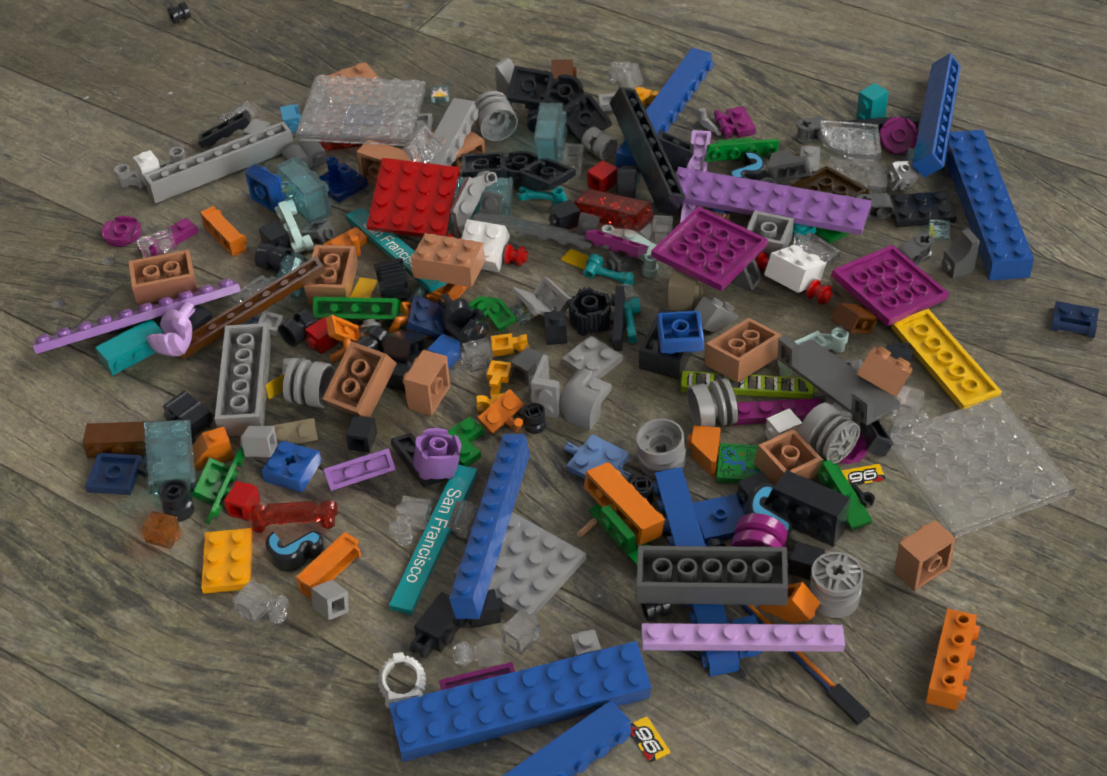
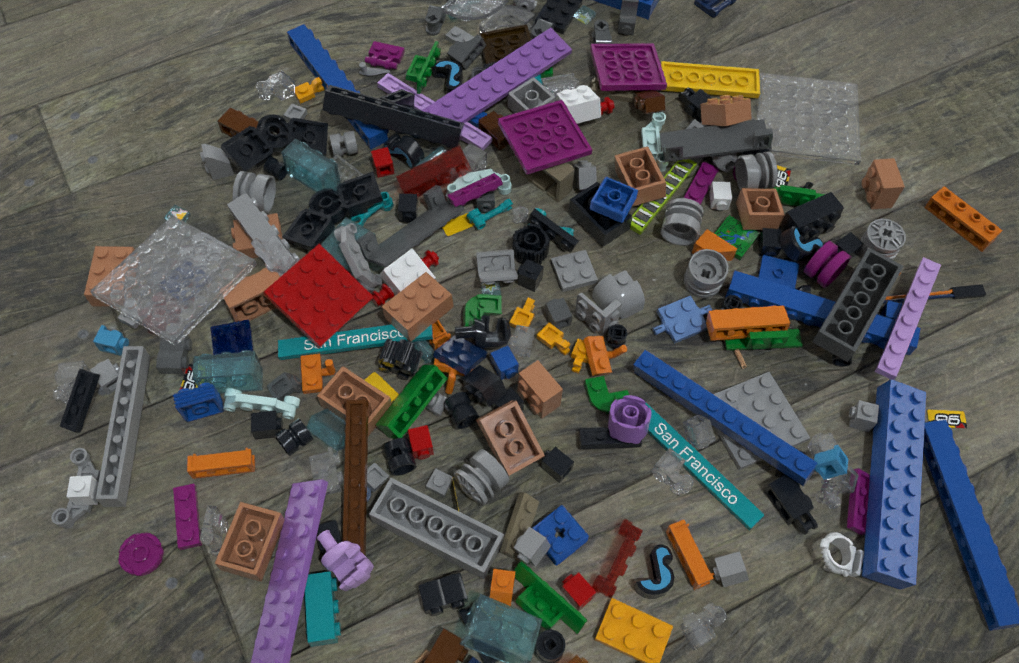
camera: 65 degrees left, 15 degrees up
(342, 331) = (439, 424): orange plate -> none
(359, 469) = (600, 485): medium lavender container -> none
(494, 624) = (831, 463): none -> dark azure brick

